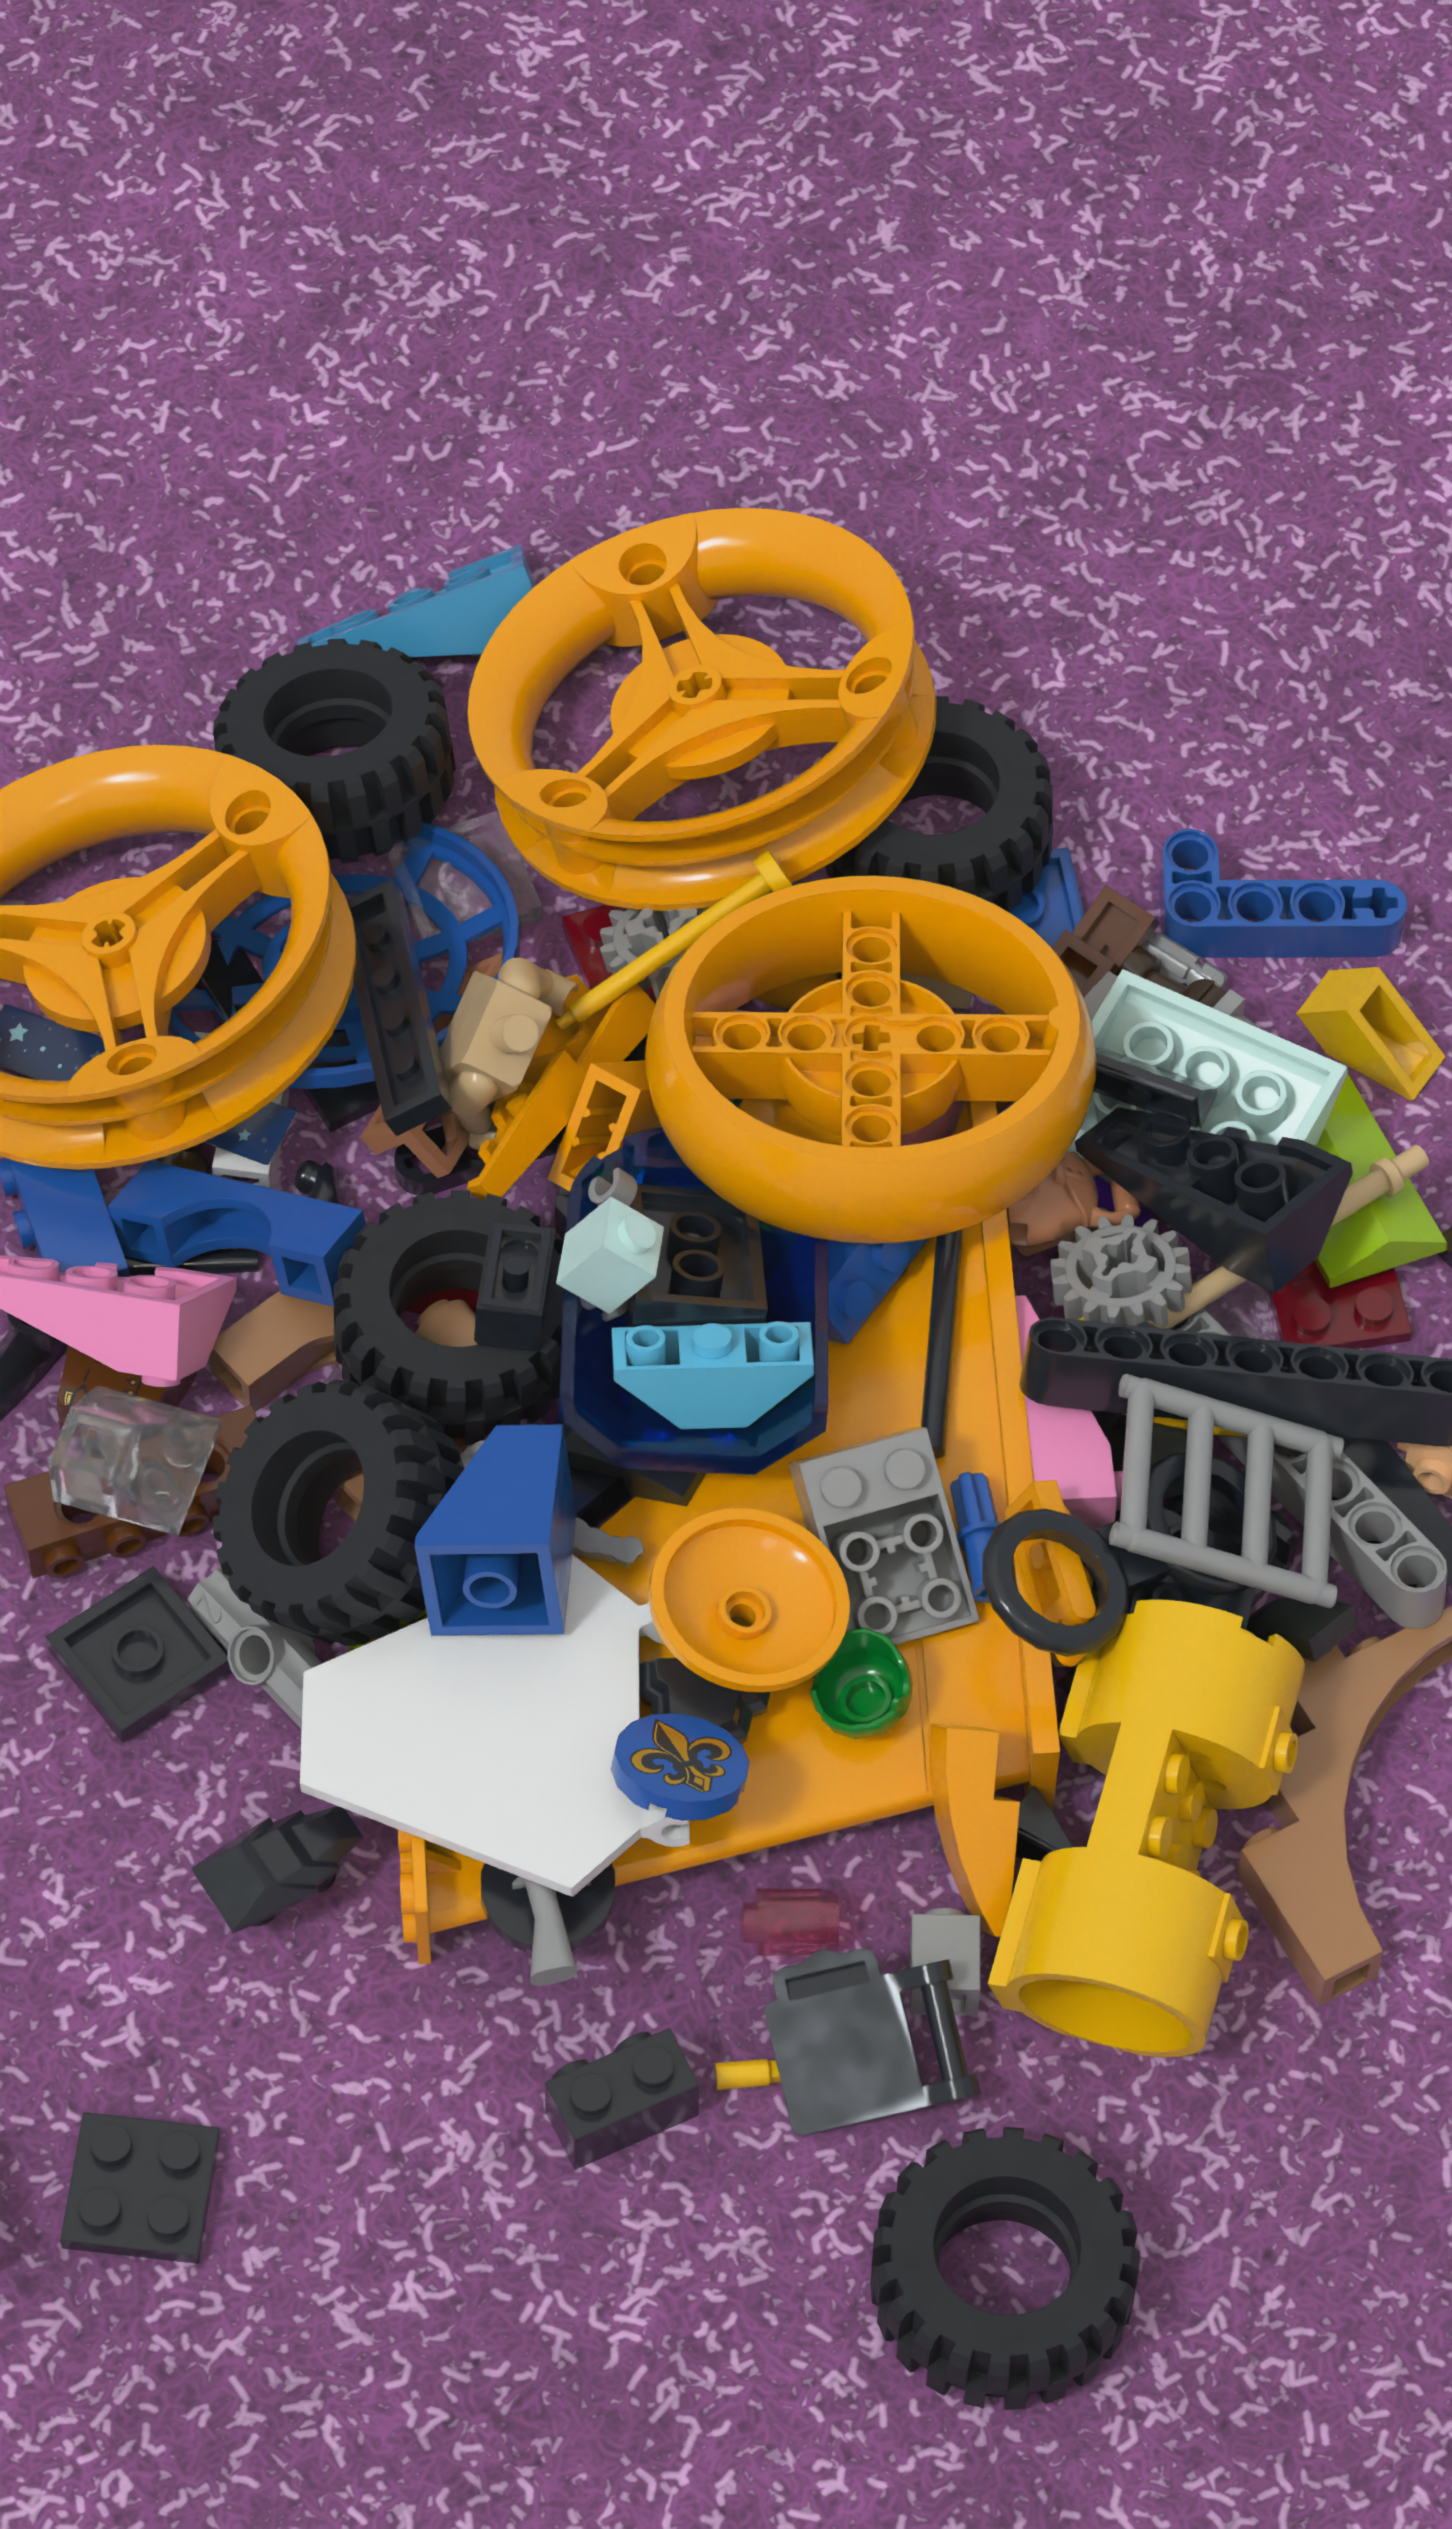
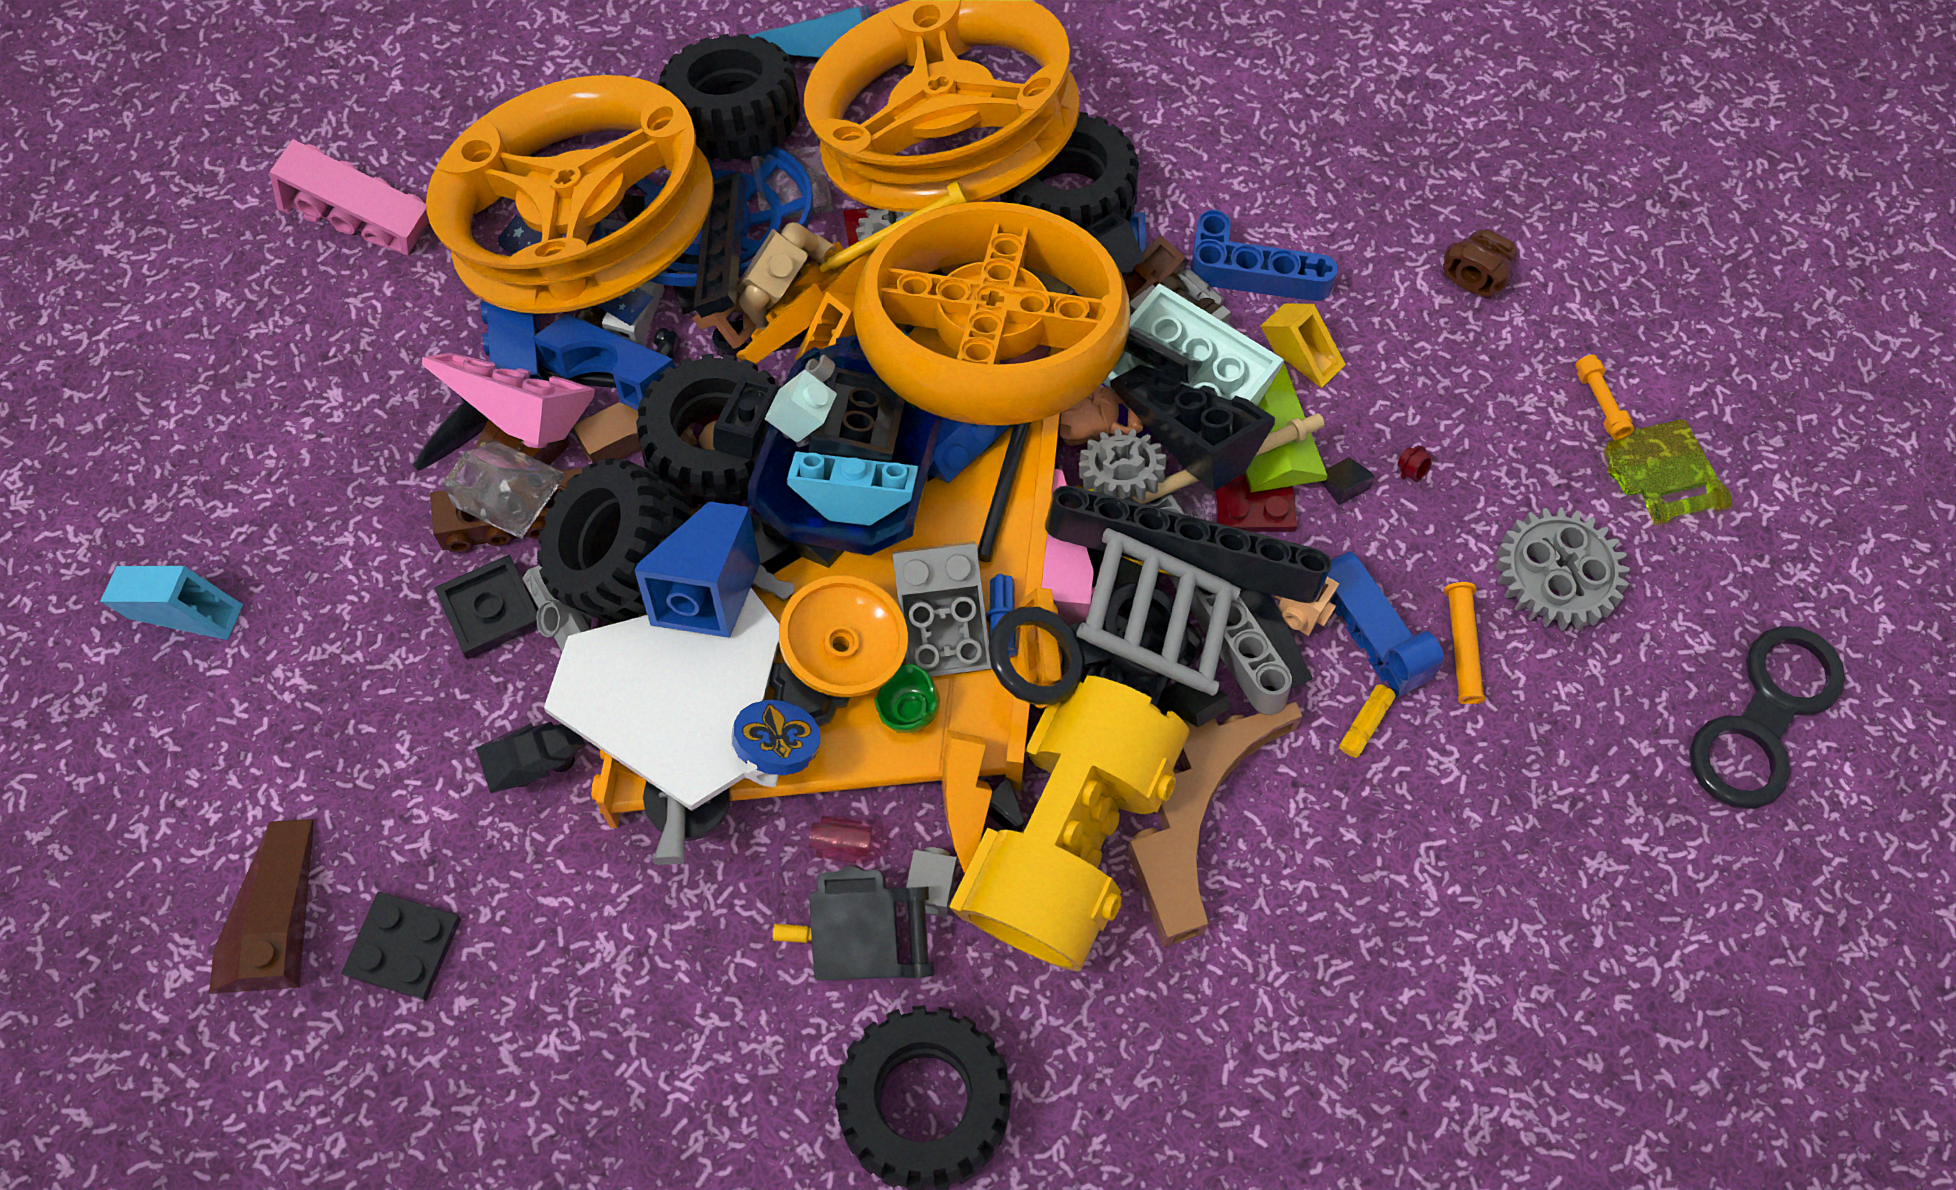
camera: 10 degrees right, 5 degrees up
(621, 2097) = (707, 938): black brick -> none
(1044, 906) = (1119, 240): none -> black slope

